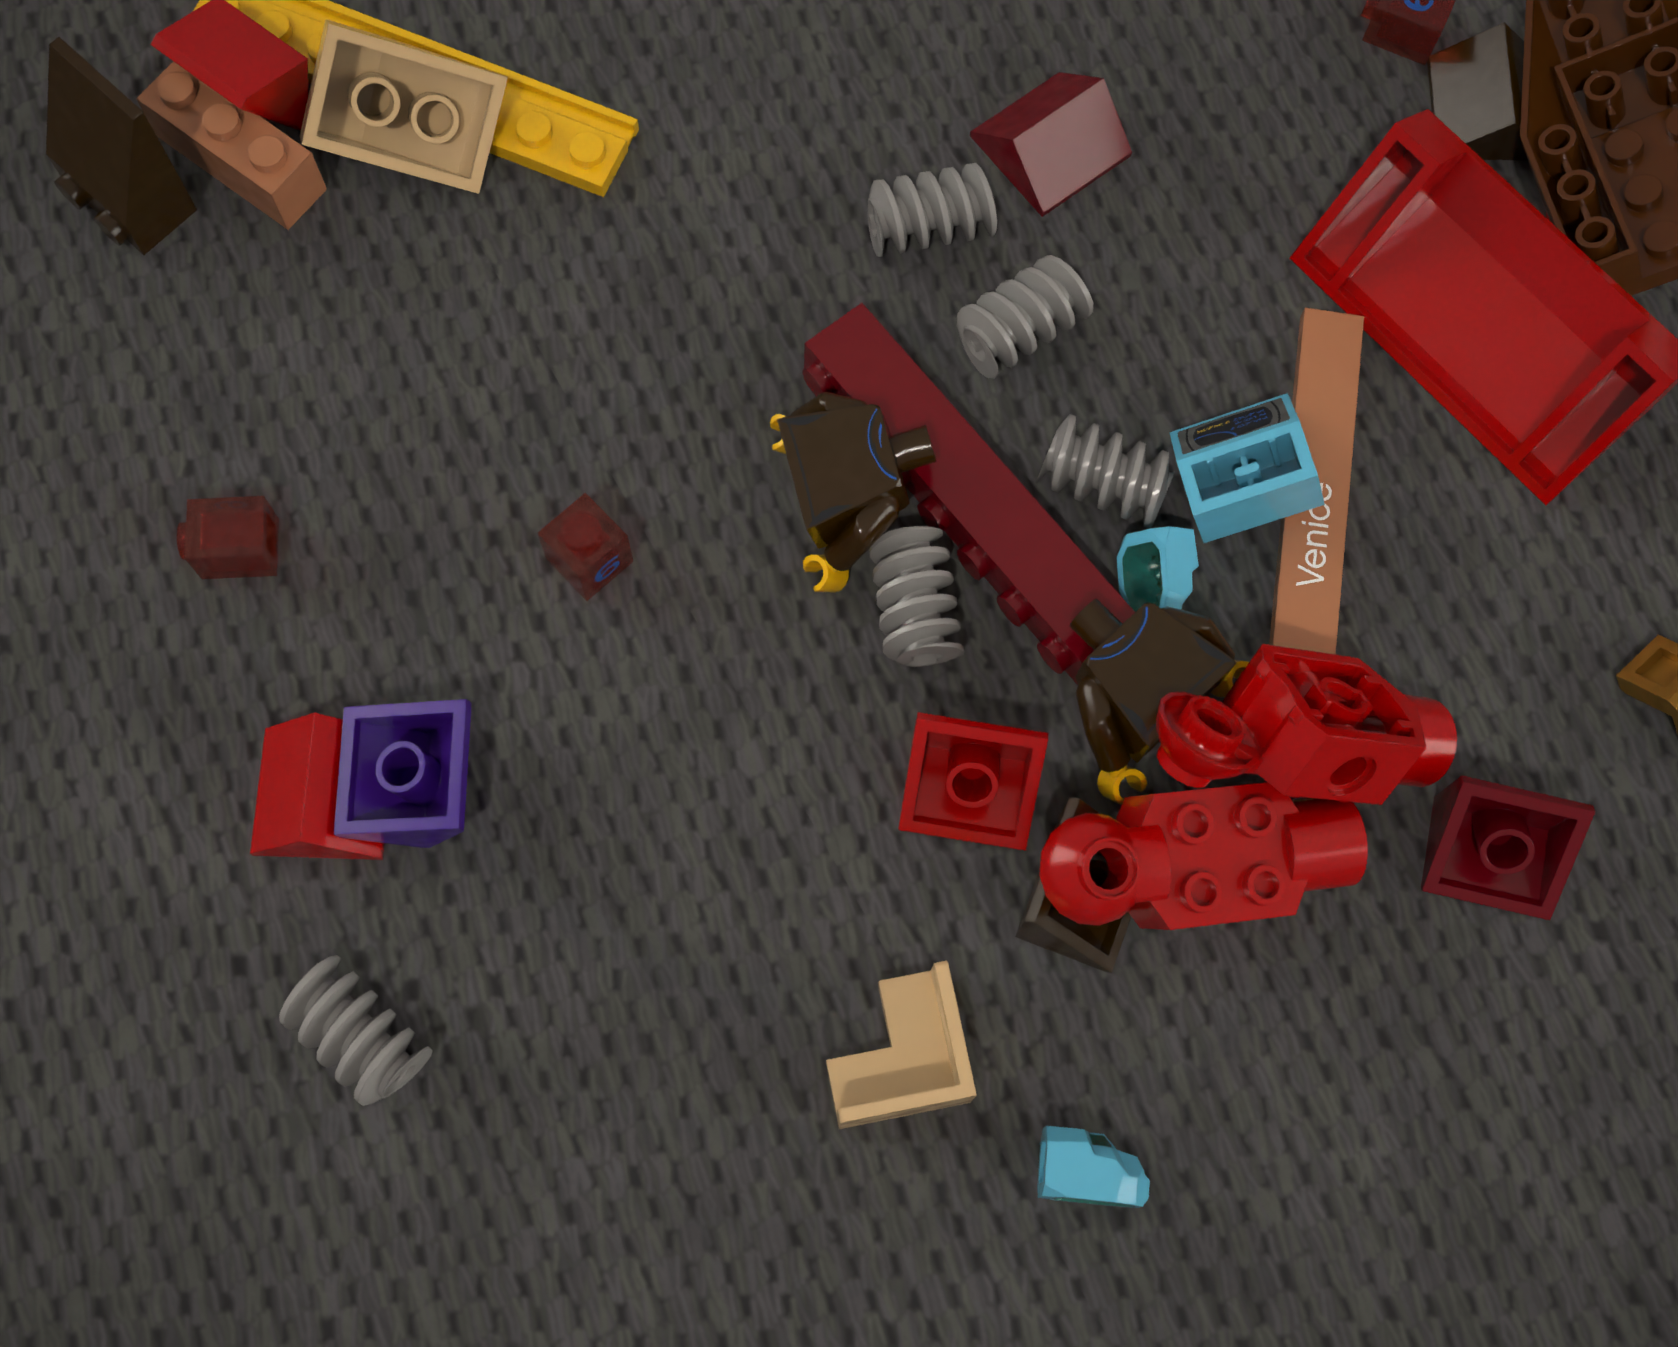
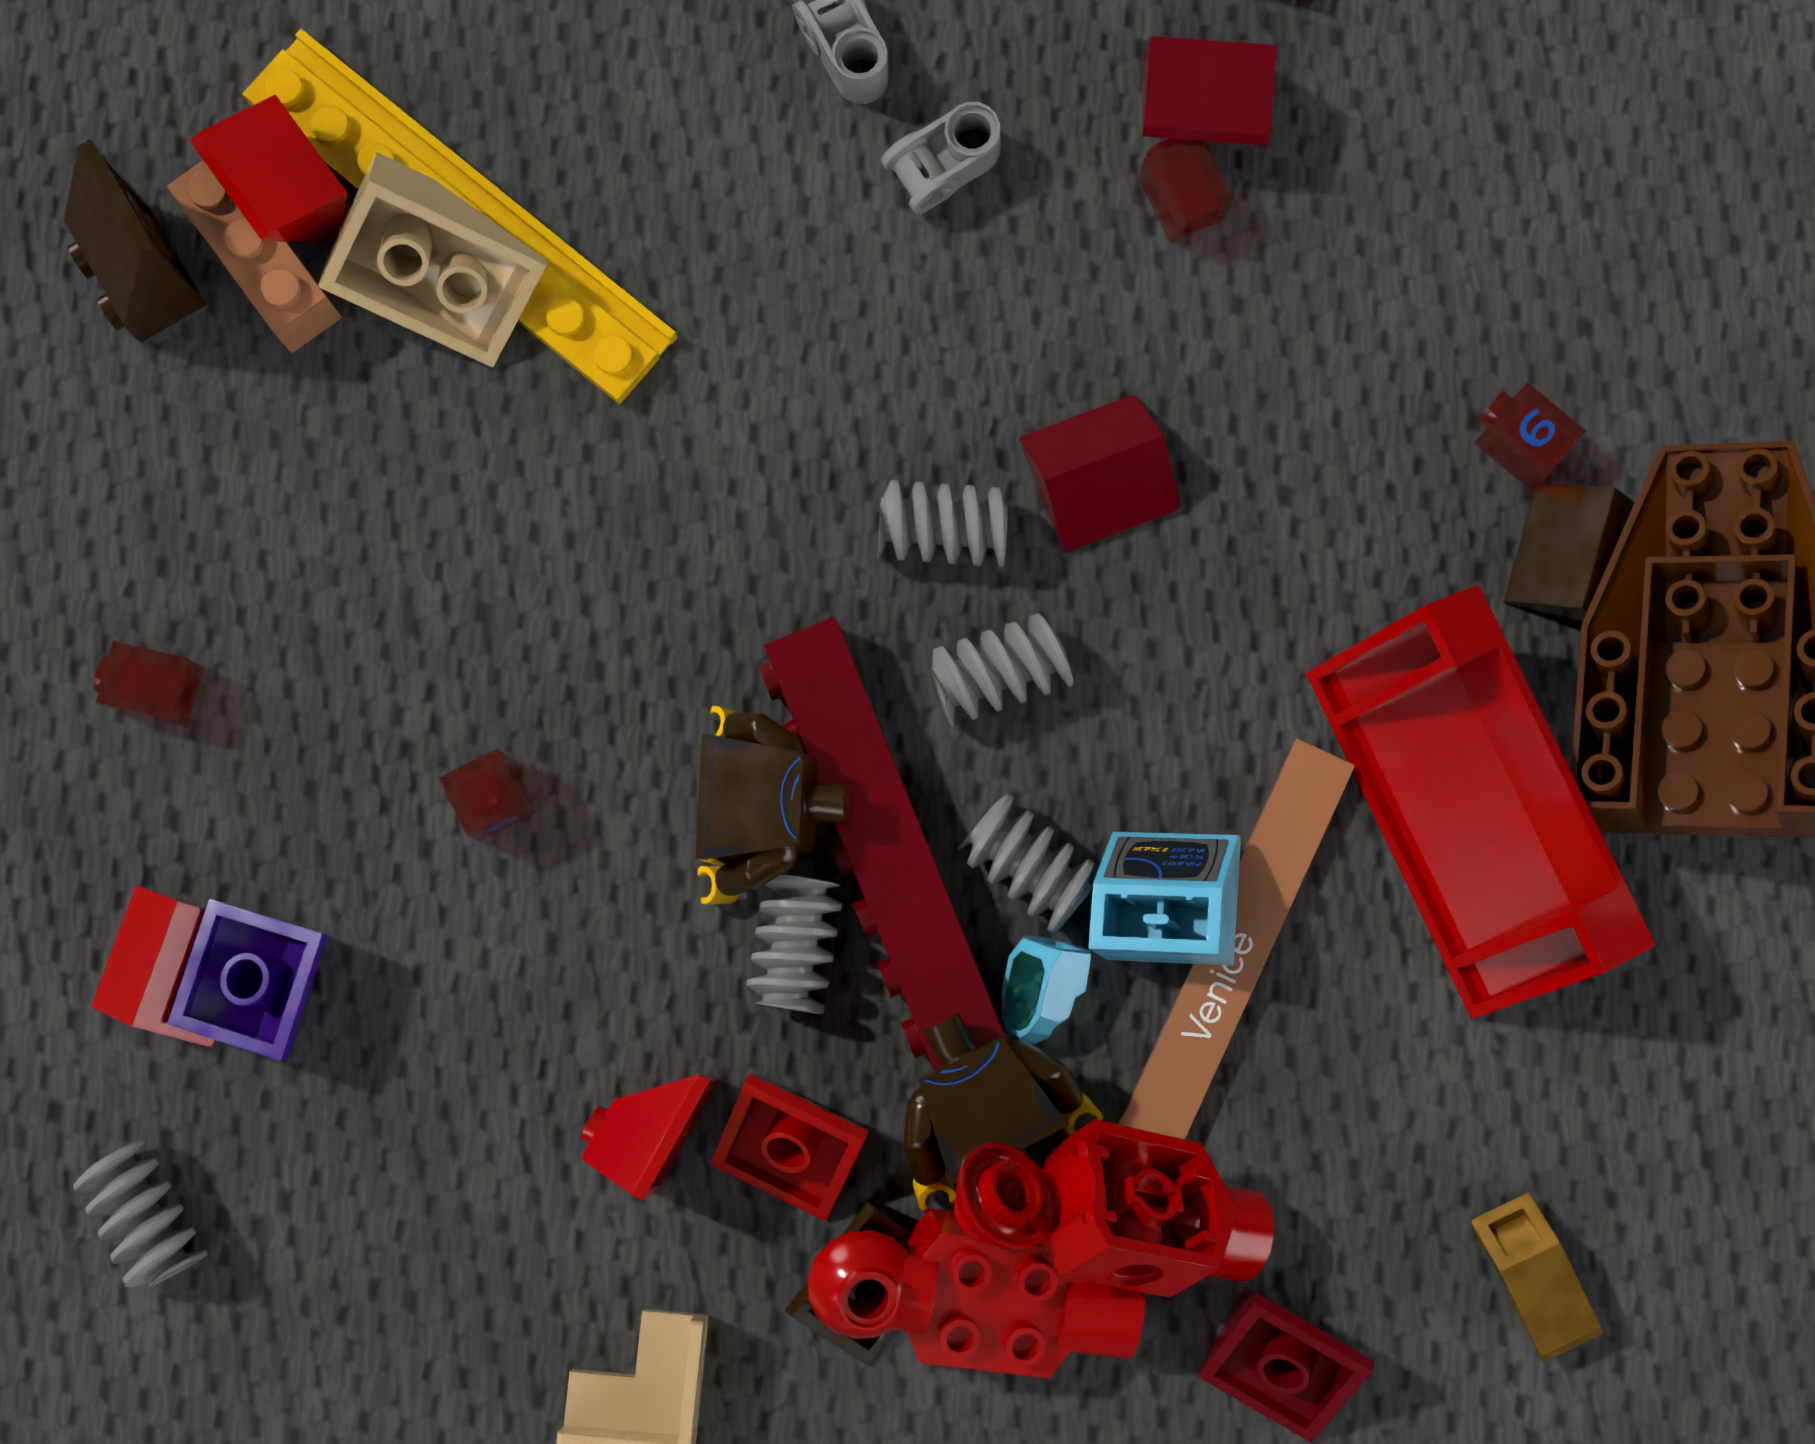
camera: 20 degrees right, 10 degrees up
(831, 802) = (644, 1133): none -> red slope

